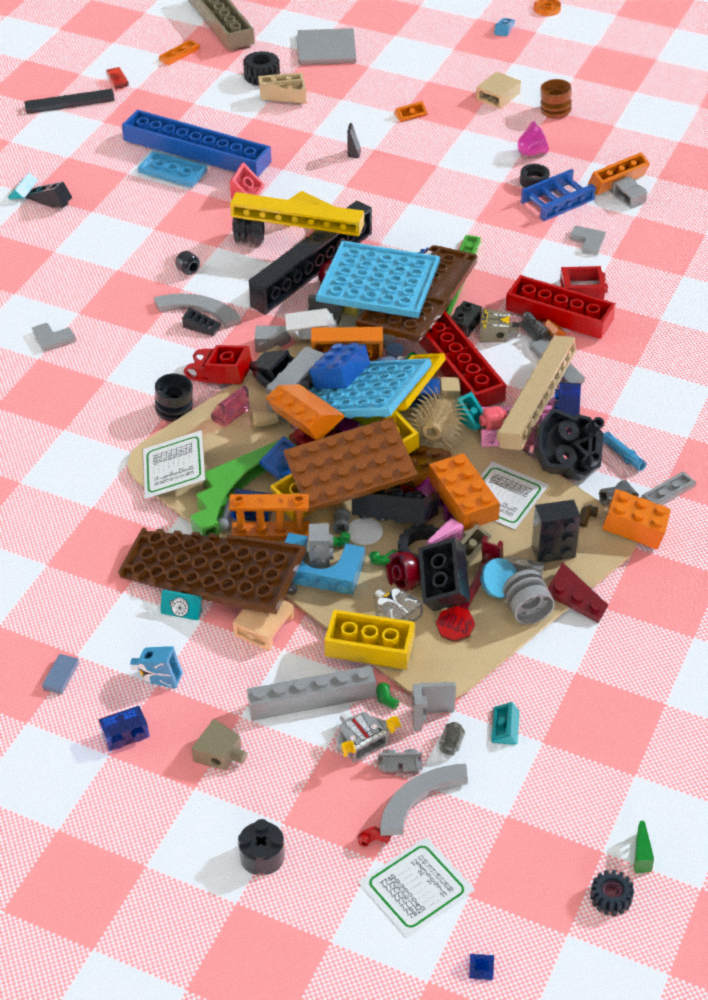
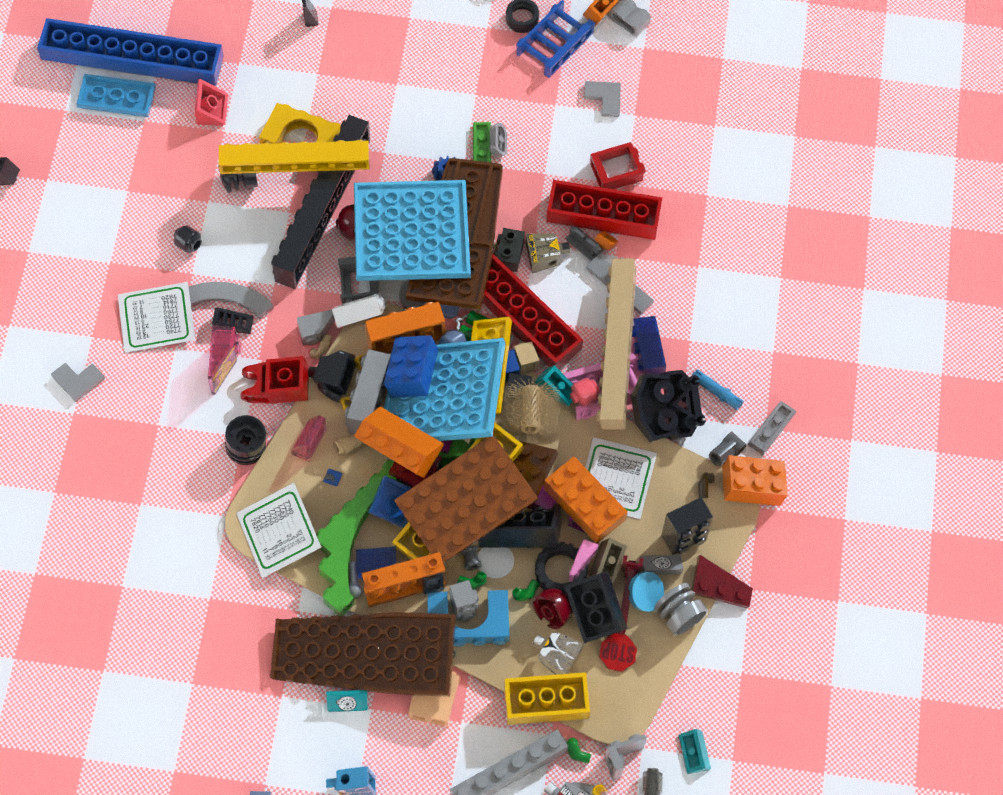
camera: 20 degrees left, 20 degrees up
(138, 308) = (156, 317): none -> white sticker
(179, 338) = (223, 355): none -> clear pink slope
(240, 442) = (332, 477): none -> blue sticker
(295, 523) = (433, 583): none -> black tile
(483, 248) = (498, 140): none -> light grey plate

